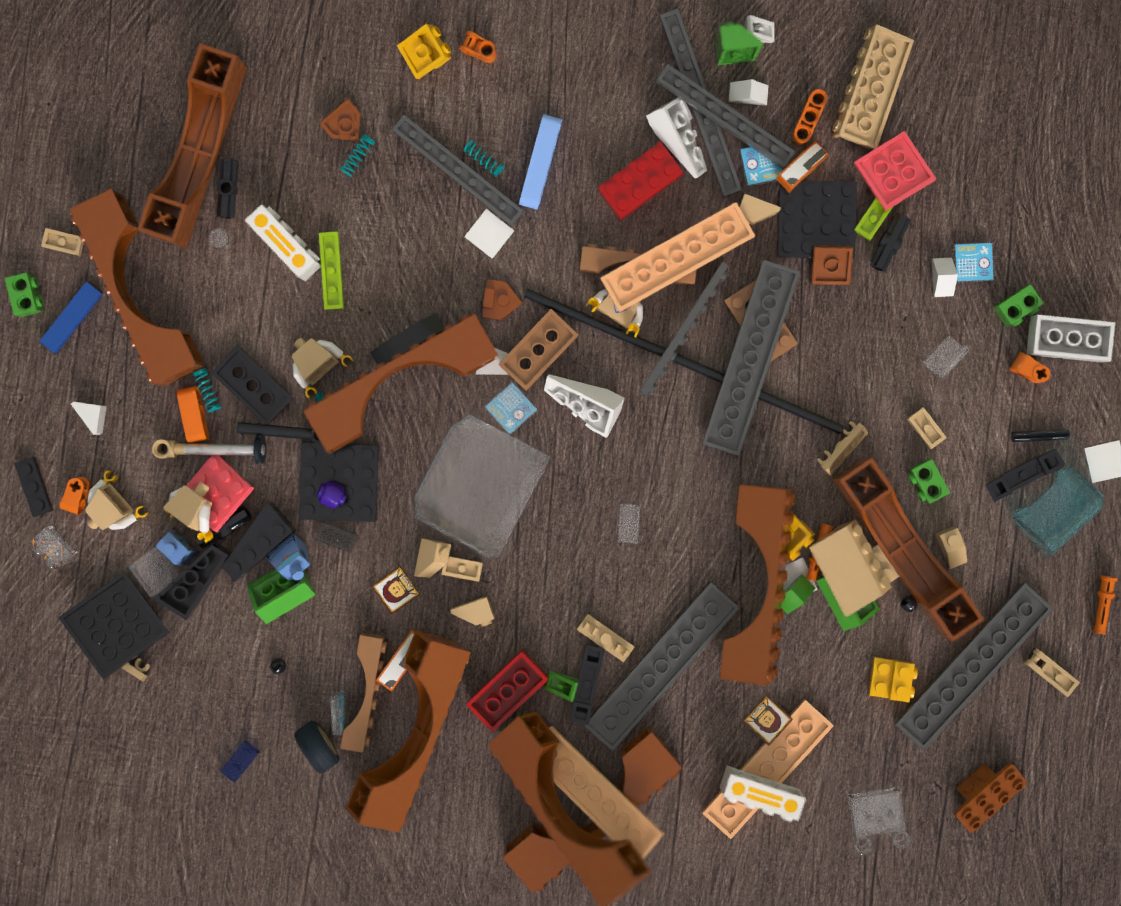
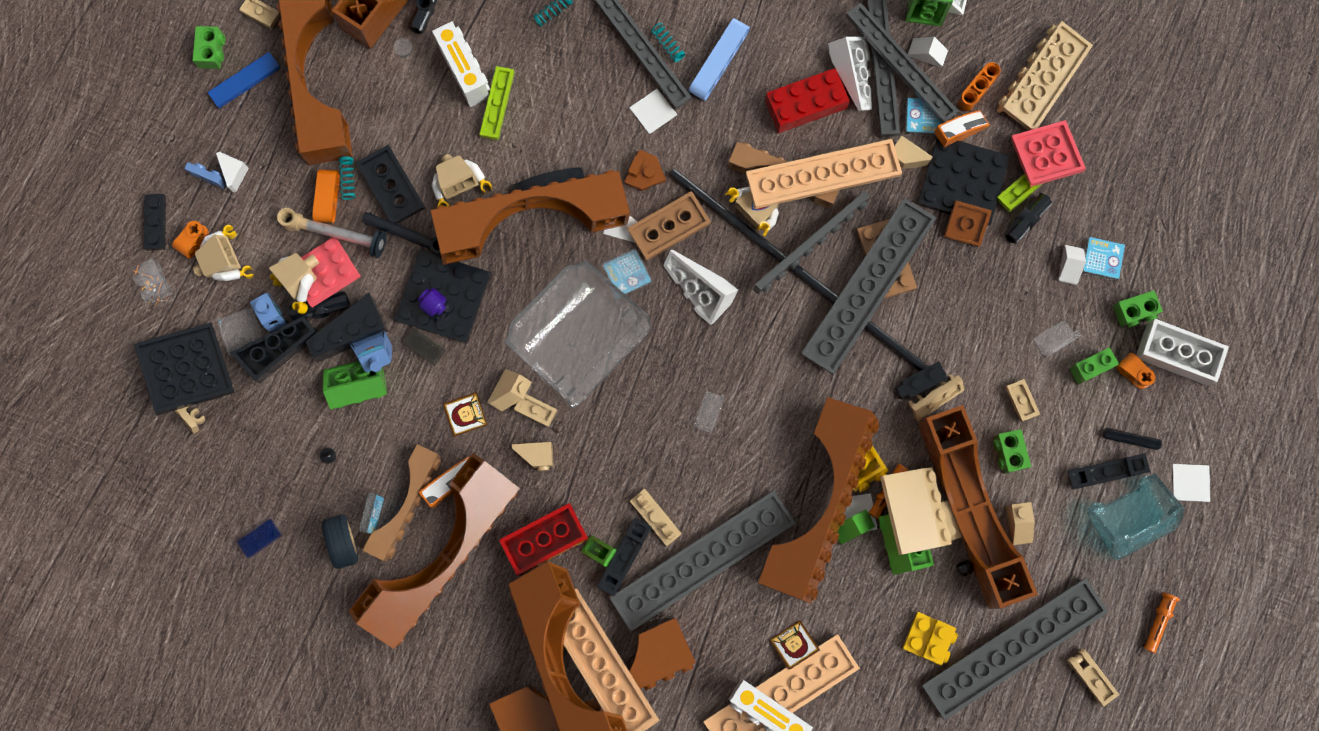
camera: 20 degrees right, 10 degrees down
(60, 425) = (211, 177): none -> medium blue plate
(825, 436) = (921, 381): none -> black hinge
(988, 375) = (1094, 366): none -> bright green brick

